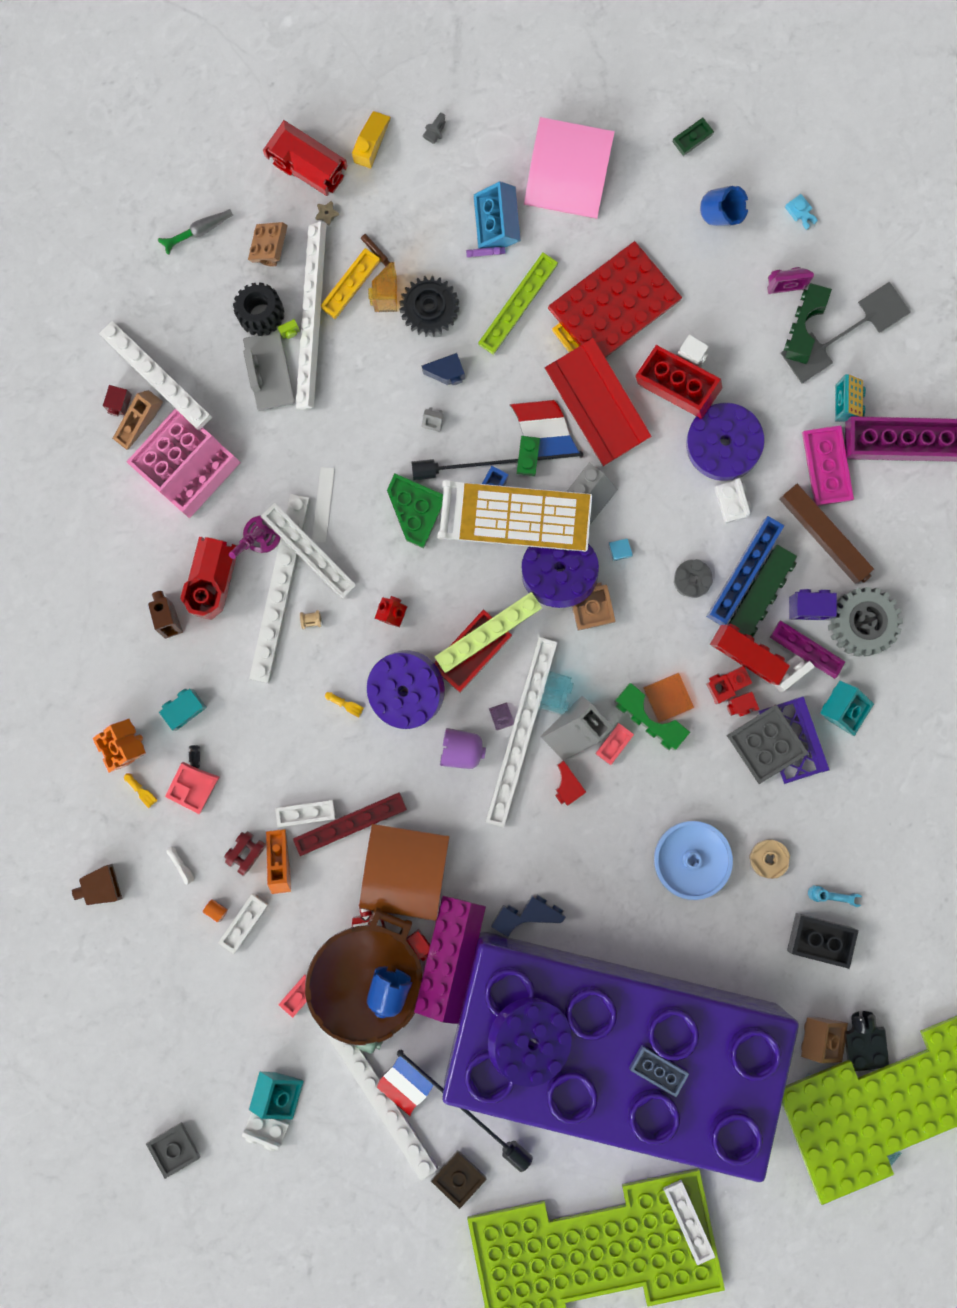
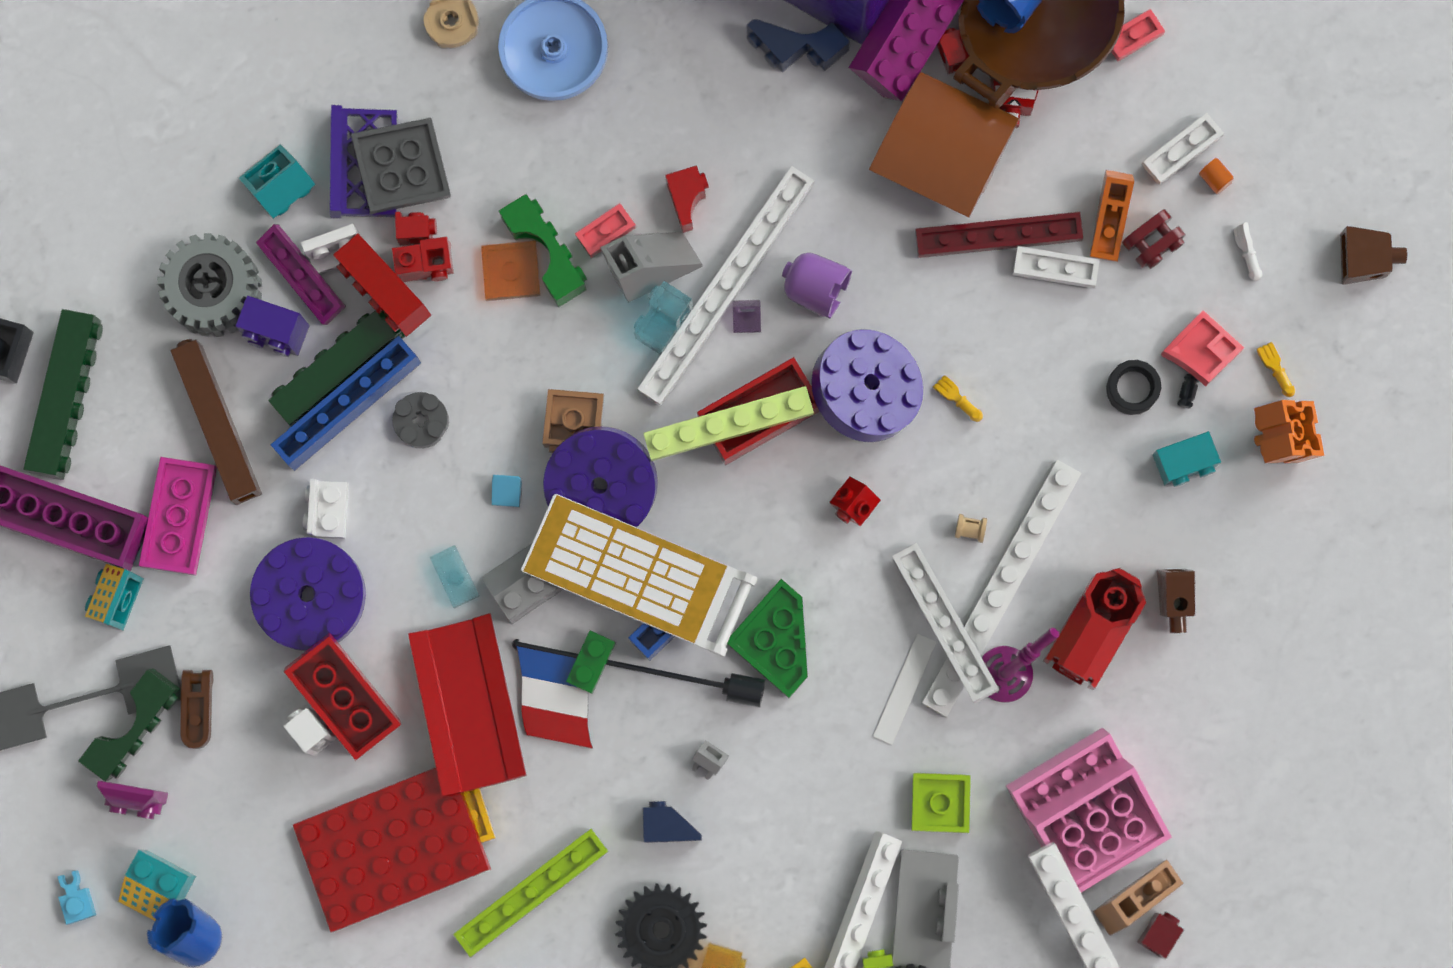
camera: 160 degrees left, 5 degrees down
(216, 747) = (1130, 366): none -> black tyre
(278, 438) = (941, 803): none -> lime plate
(634, 483) = (454, 576): none -> clear light blue plate
(754, 235) = (153, 882): none -> teal slope
(769, 348) = (196, 708): none -> reddish brown plate
(933, 519) = (63, 394): none -> dark green brick

